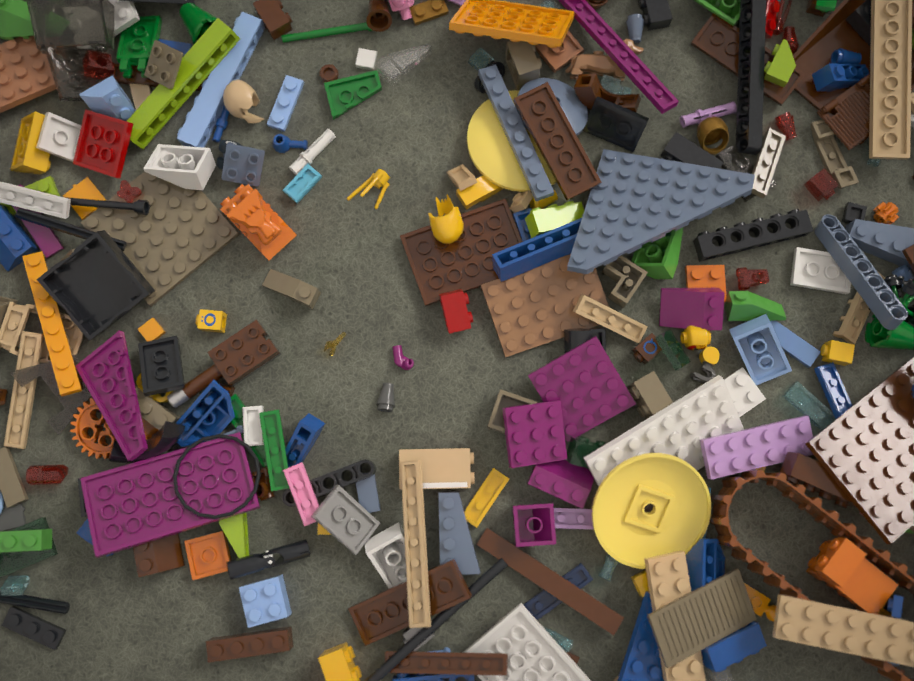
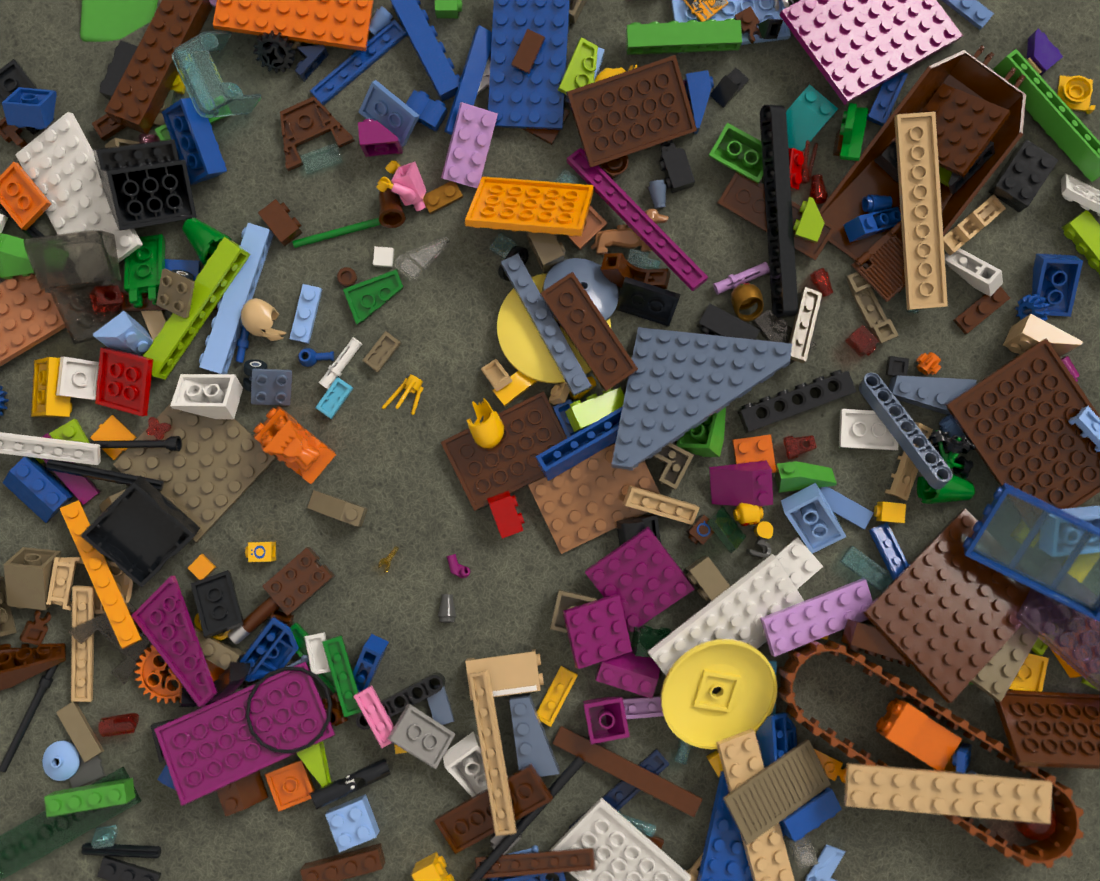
camera: 10 degrees left, 5 degrees up
(353, 145) = (381, 351): none -> dark tan plate

